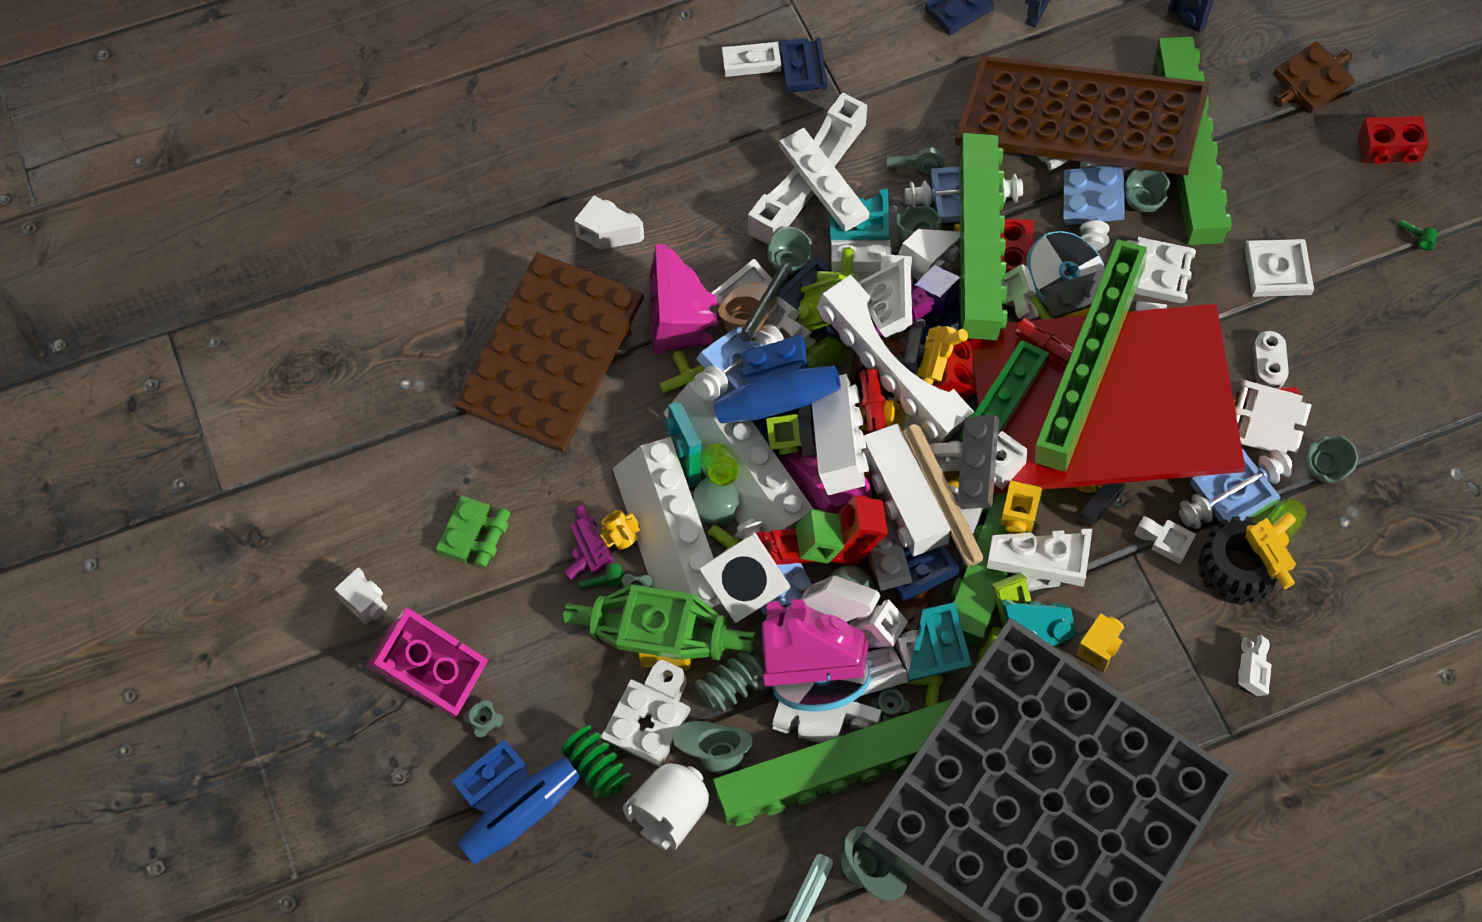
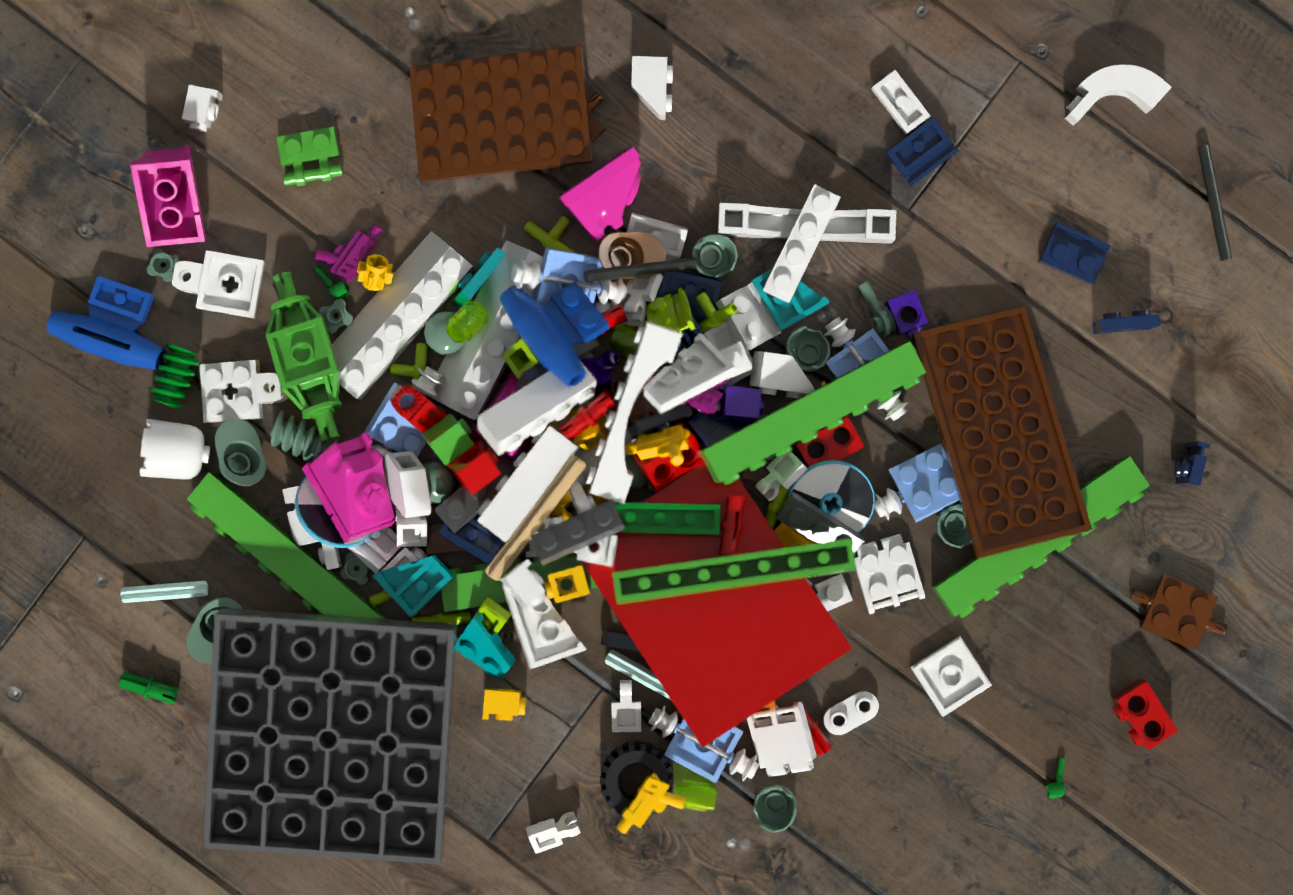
camera: 60 degrees right, 25 degrees up
(525, 684) = (208, 283): none -> white plate
(745, 577) = (373, 403): white tile -> none
(932, 130) = (911, 301): none -> dark purple brick
(1000, 537) = (524, 584): none -> white brick
(1142, 507) = (635, 671): none -> light aqua axle

